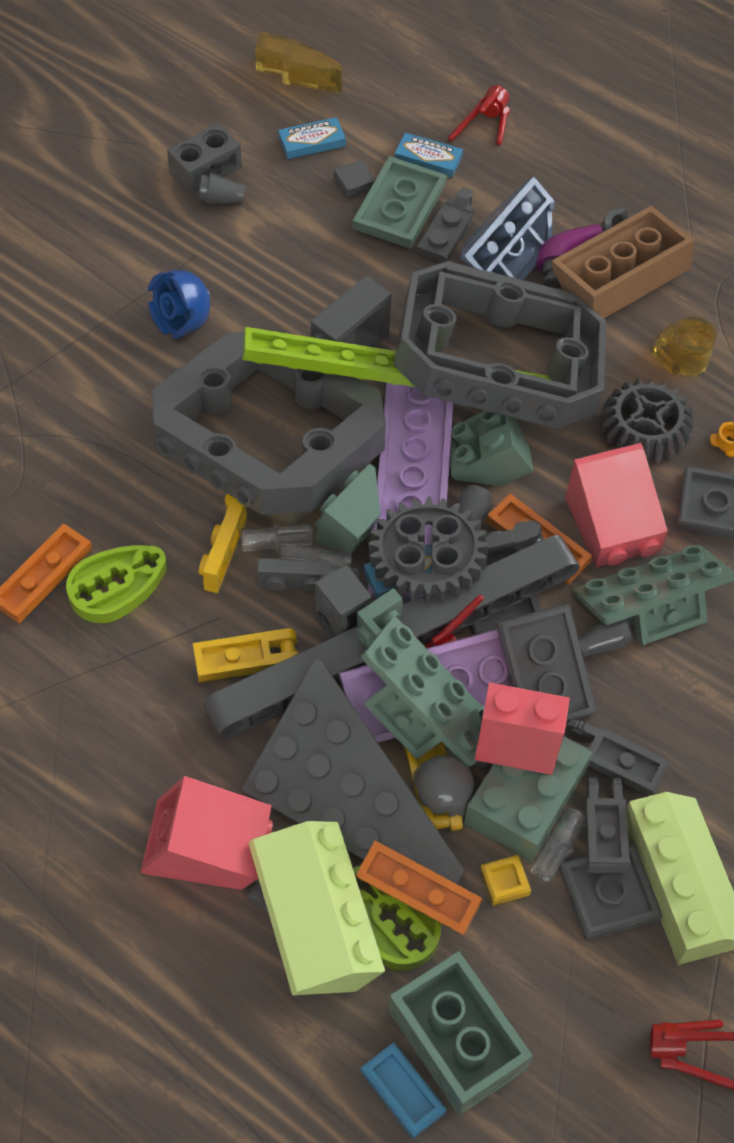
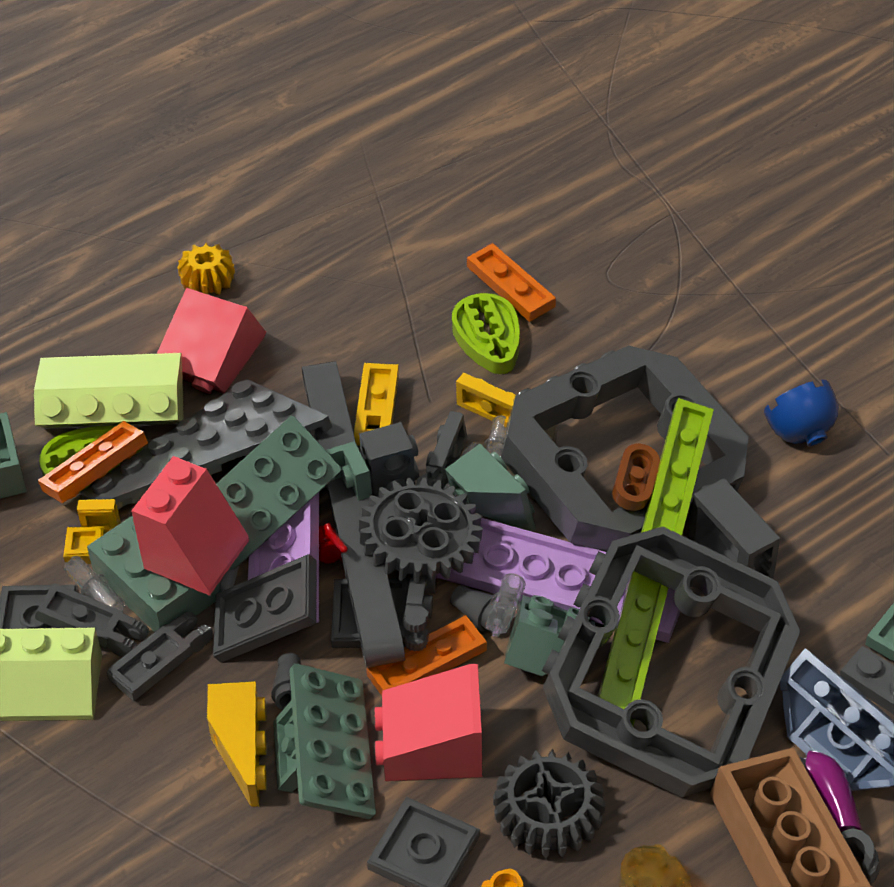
camera: 110 degrees right, 10 degrees down
(89, 896) = (206, 269): none -> yellow gear
(325, 385) = (636, 477): none -> dark orange plate
(475, 869) = (98, 513): none -> yellow tile
(482, 473) = (505, 604): none -> clear axle
(668, 664) = (234, 730): none -> yellow slope

